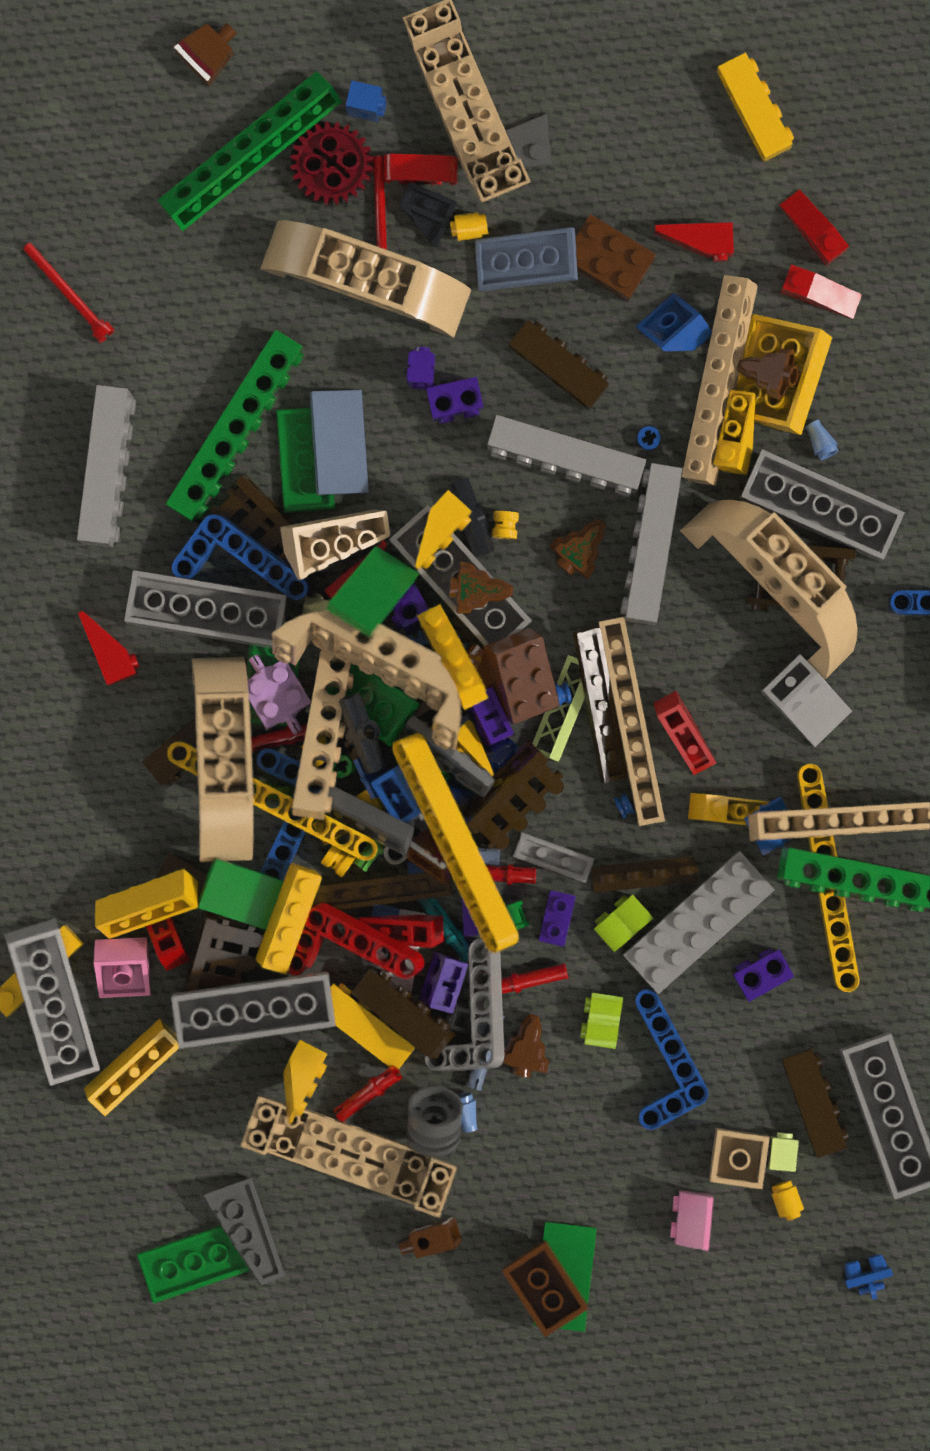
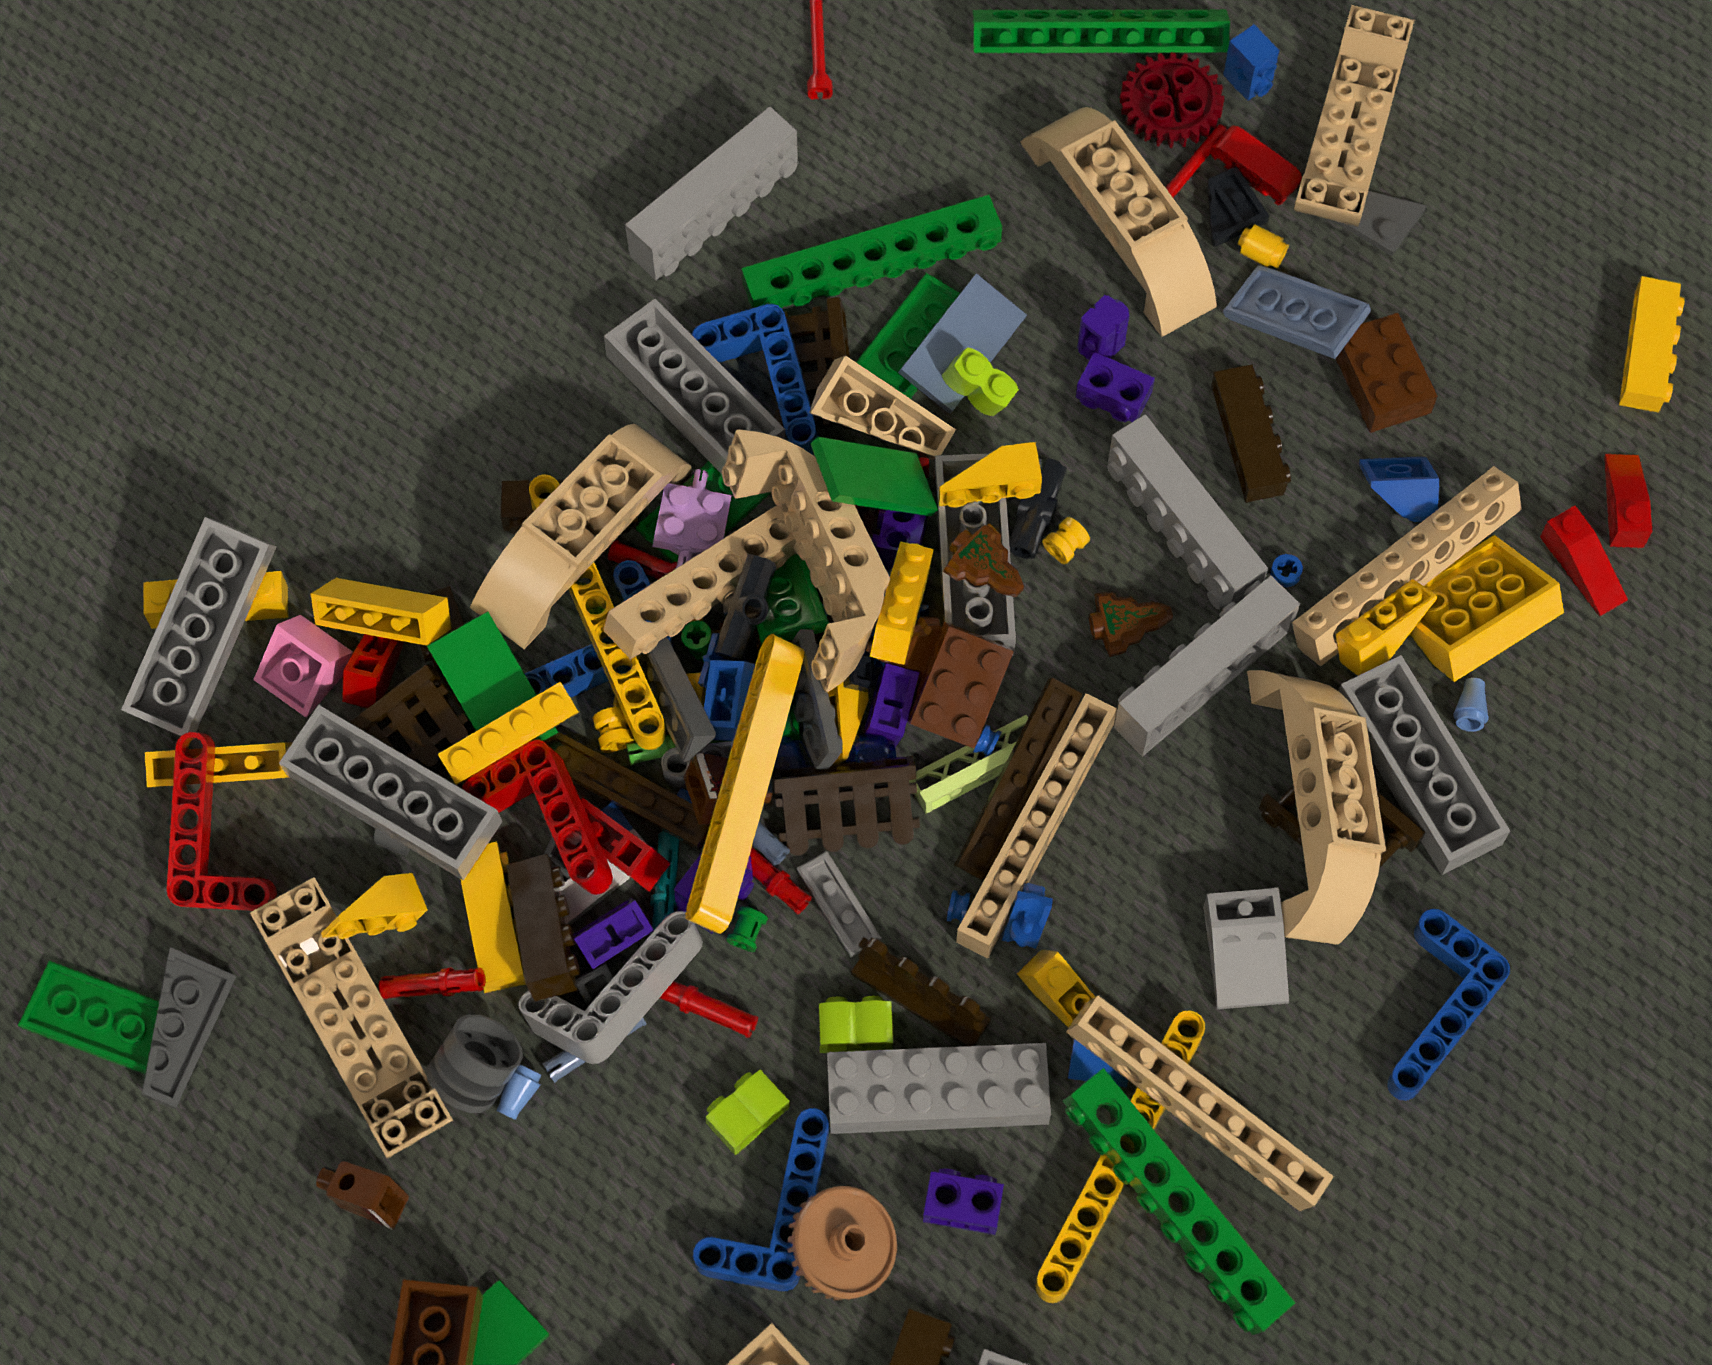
camera: 35 degrees right, 20 degrees down
(111, 656) = (562, 372): red slope -> none
(160, 1122) = (199, 836): none -> red beam
(369, 463) = (984, 386): none -> lime brick
(525, 1050) = (638, 1077): reddish brown rock -> none
(557, 918) = (789, 964): dark purple brick -> none
(671, 783) = (1027, 916): none -> blue hips
(684, 732) = (1085, 883): red slope -> none
(705, 239) = (1498, 424): red slope -> none
(718, 1052) = (821, 1249): none -> medium nougat wheel
(771, 372) = (1472, 589): reddish brown rock -> none

